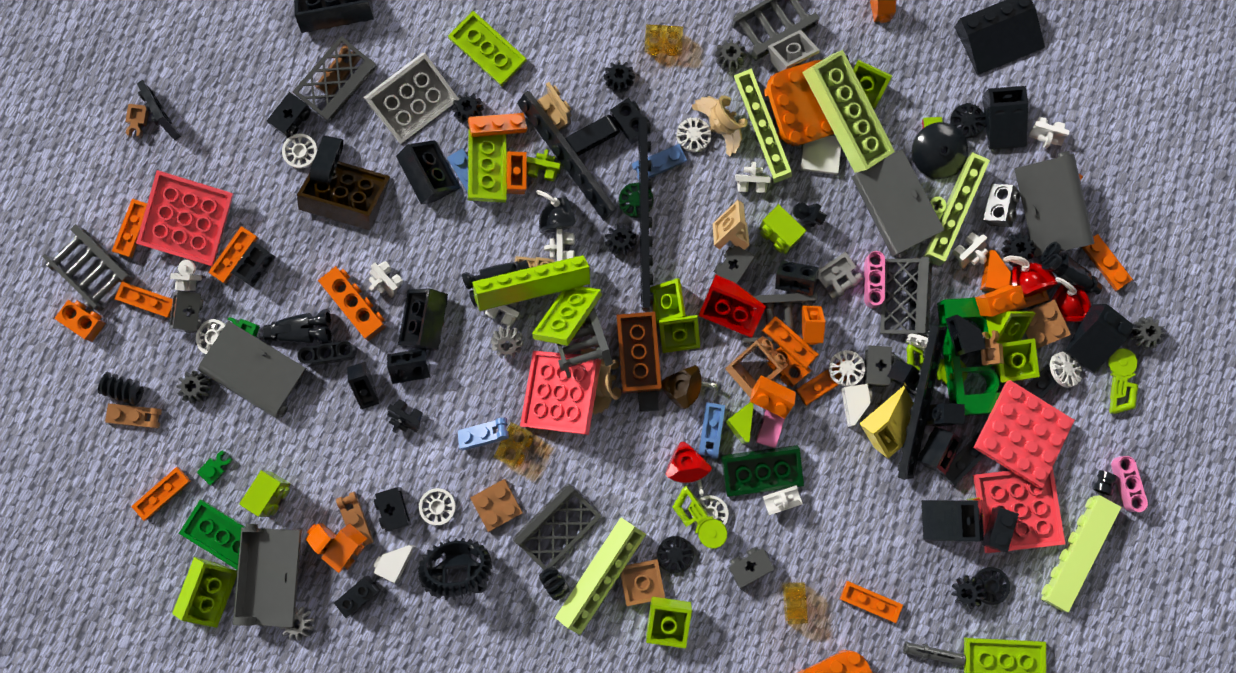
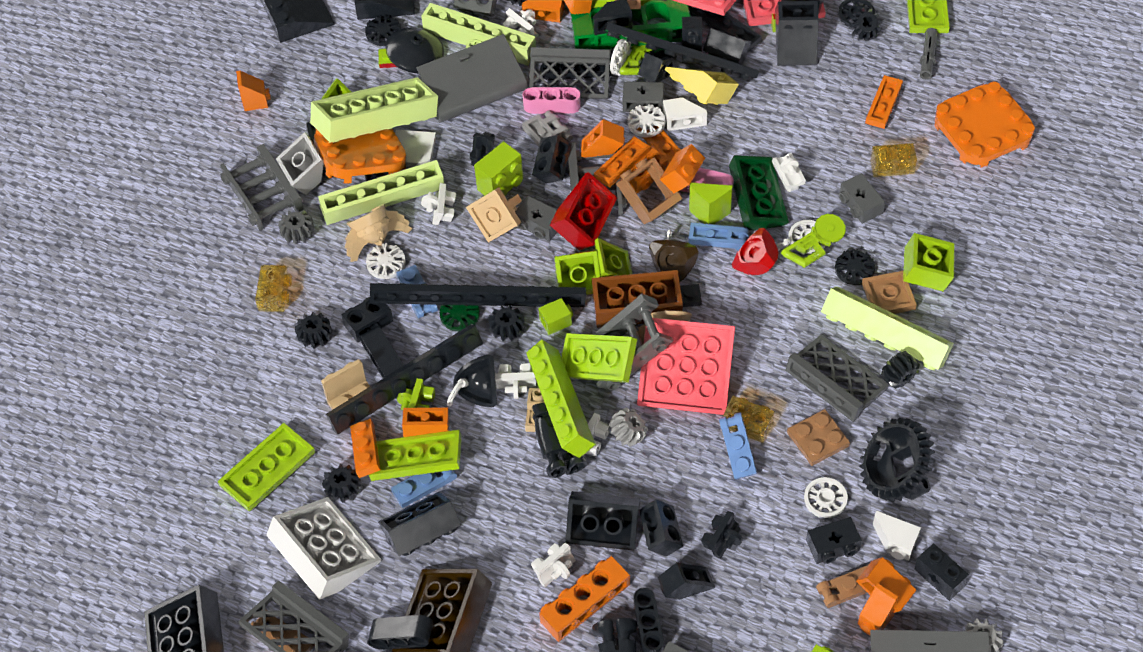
camera: 90 degrees left, 25 degrees down
(626, 282) = (555, 316): none -> lime brick

